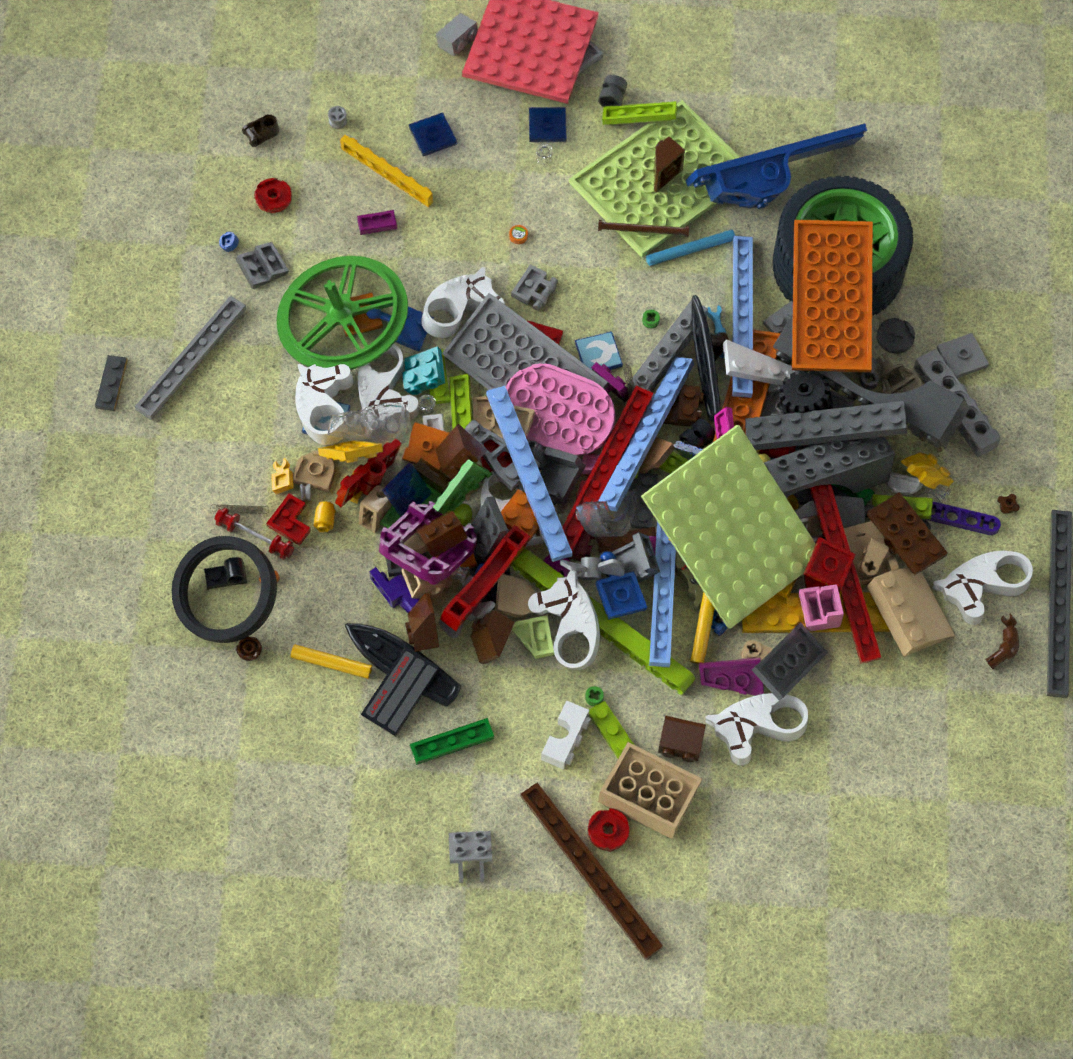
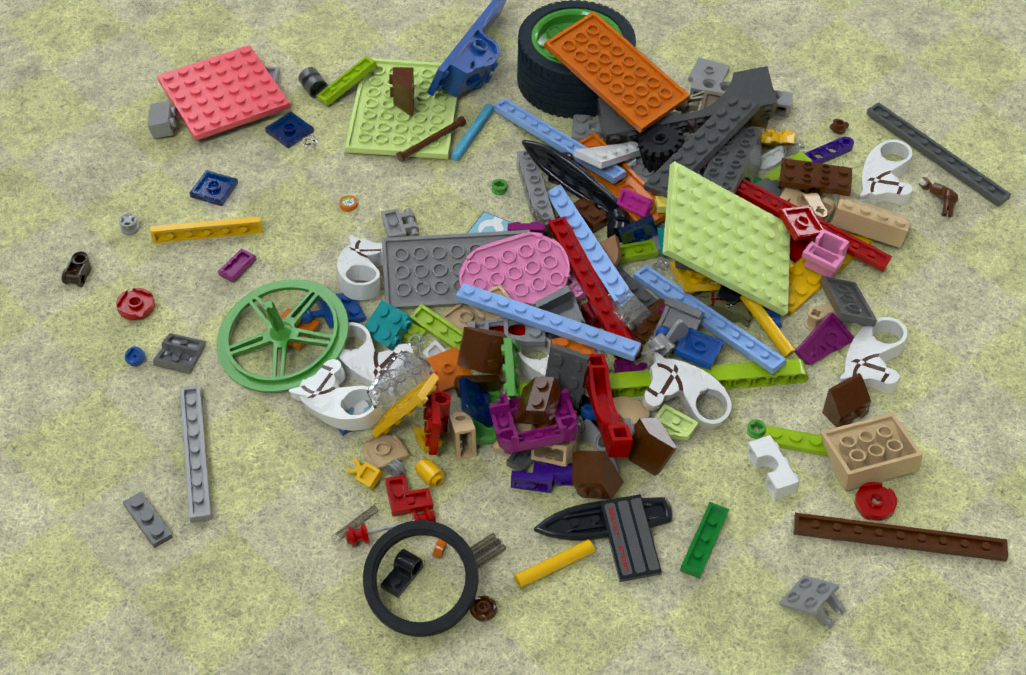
camera: 45 degrees left, 15 degrees down
(297, 601) = (495, 542): none -> clear smoke tile

